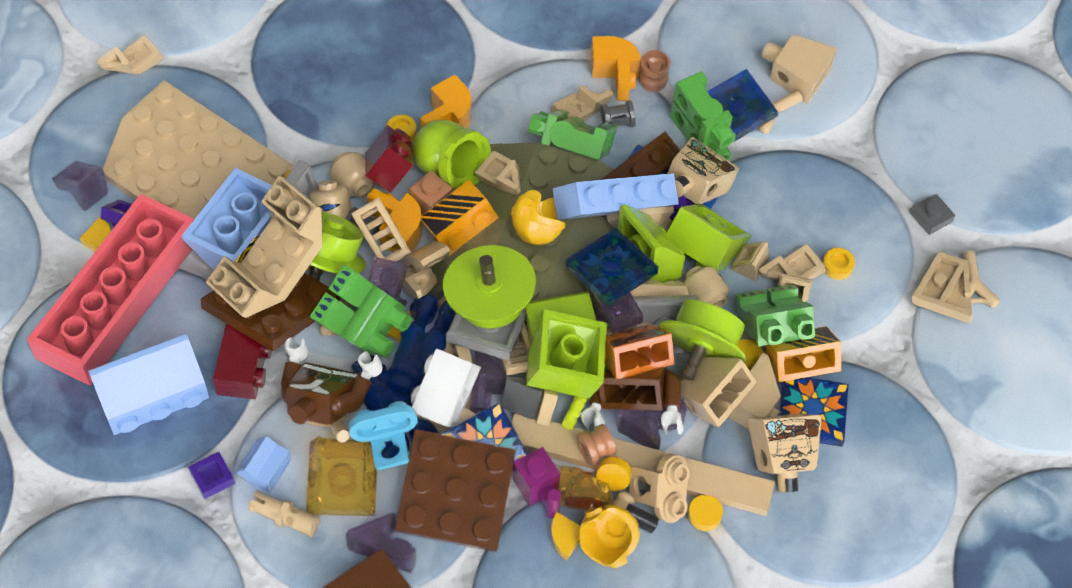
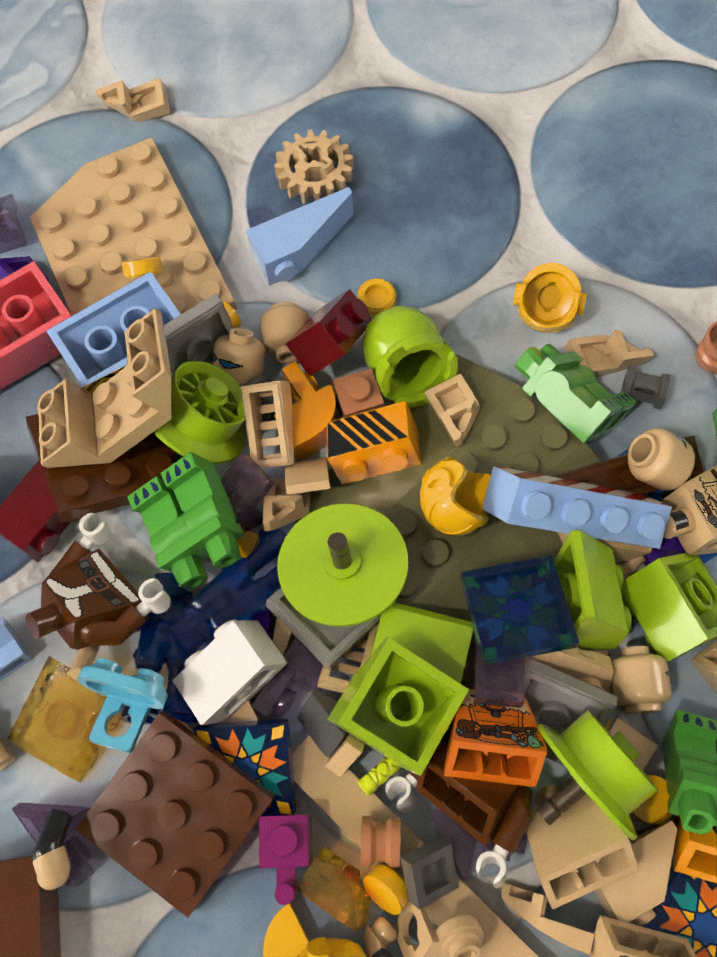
camera: 35 degrees right, 10 degrees up
(222, 168) = (142, 266): none -> yellow tile
(305, 56) = (314, 166): none -> tan gear
(318, 113) = (295, 238): none -> light blue slope
(393, 539) = (50, 853): none -> arm
(450, 102) = (448, 293): light orange brick -> none
(526, 81) = (549, 298): none -> yellow cap
(616, 59) = (681, 313): light orange brick -> none
(635, 445) = (429, 872): none -> dark grey plate
(652, 149) = (661, 459): none -> tan head
(720, 448) = (531, 908): none -> tan slope

